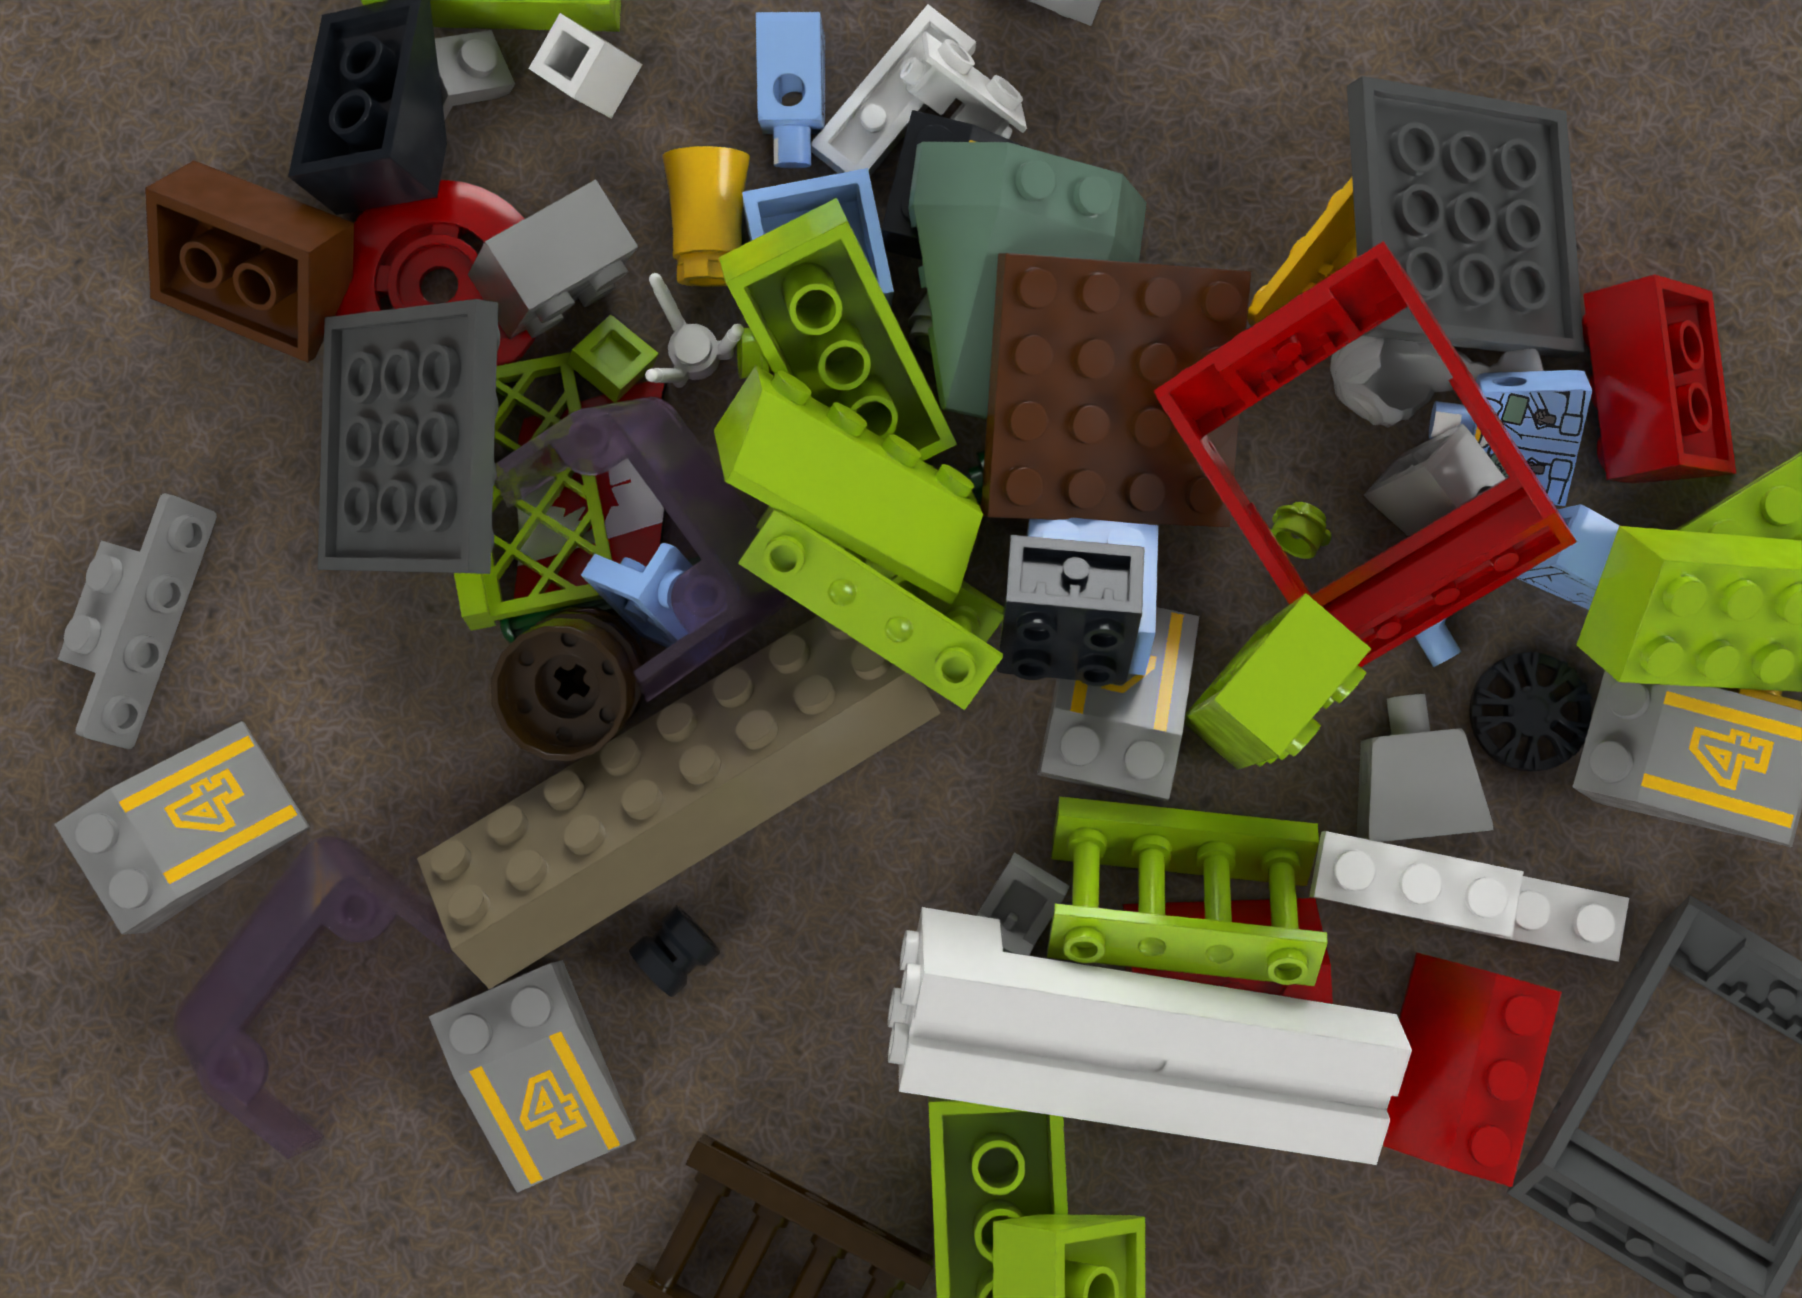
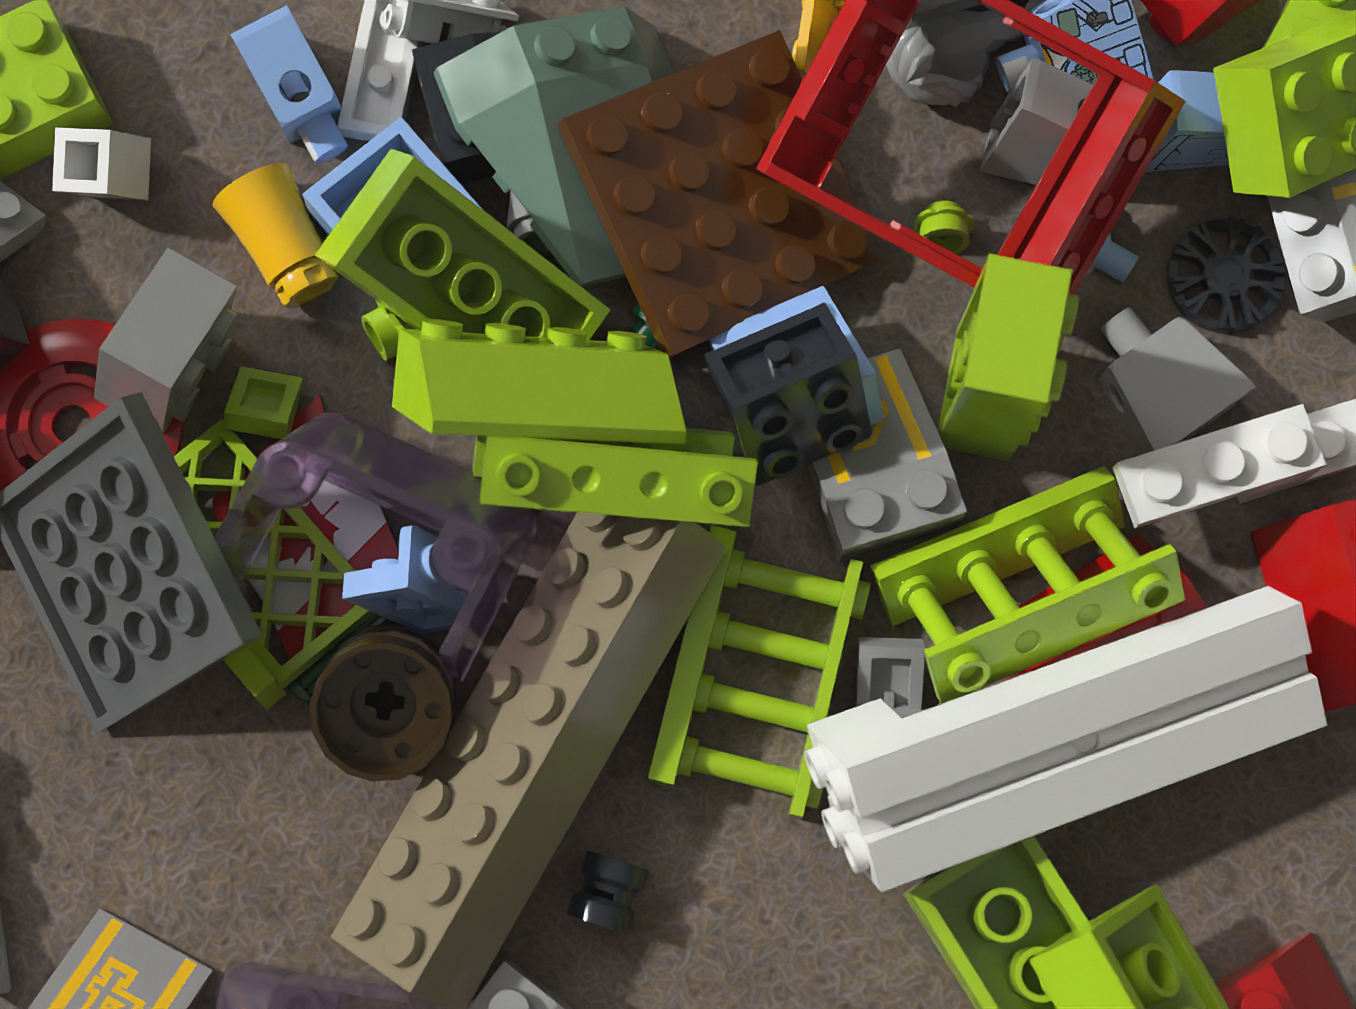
camera: 30 degrees left, 5 degrees down
(691, 346) = (330, 355): white plant -> none
(848, 822) = (696, 691): none -> lime fence

